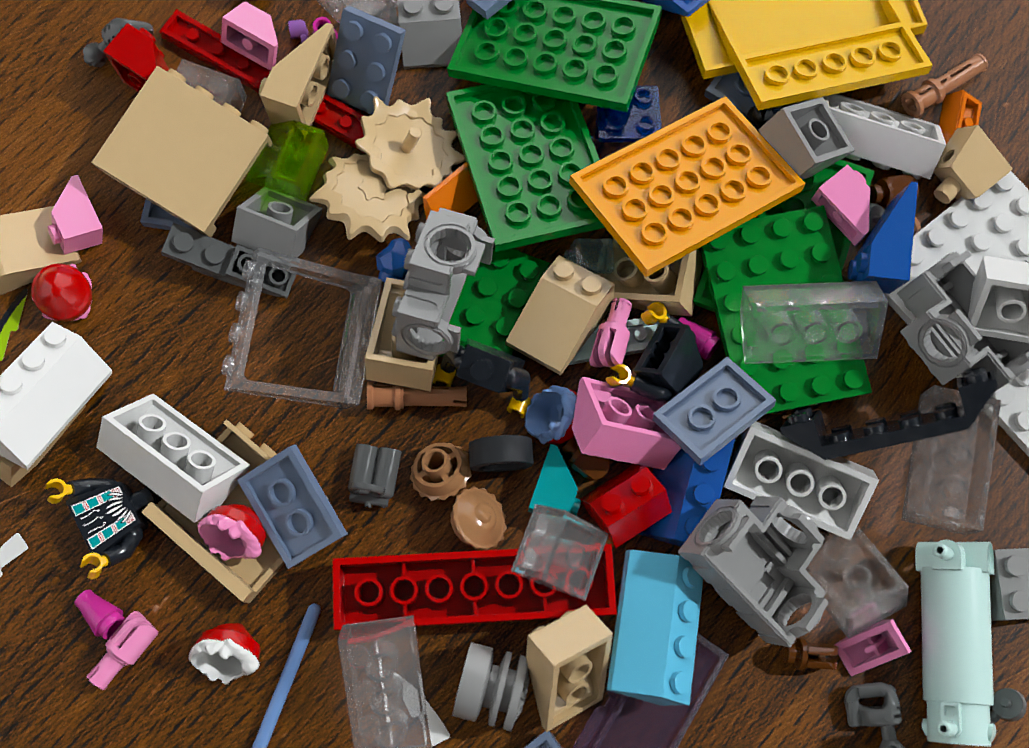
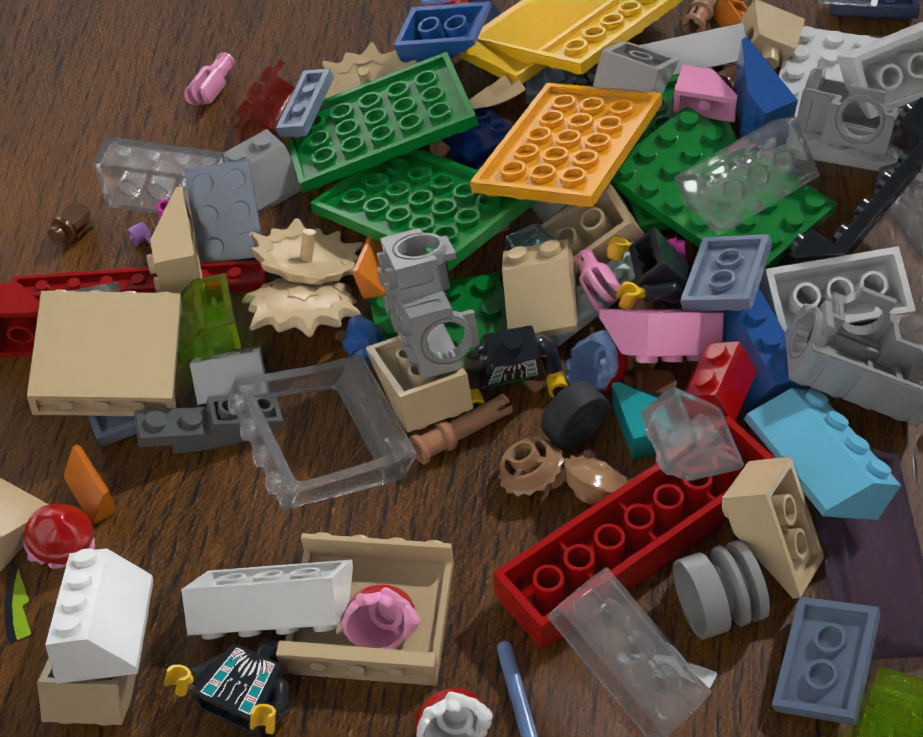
camera: 25 degrees left, 25 degrees down
(74, 219) = (33, 471): bright pink slope -> none
(114, 259) = (88, 486): none -> orange slope
(250, 34) = (103, 252): bright pink slope -> none
(292, 506) = (421, 559): sand blue plate -> none
(373, 475) = (471, 506): dark grey piece -> none
(672, 77) = (497, 93): none -> tan slope

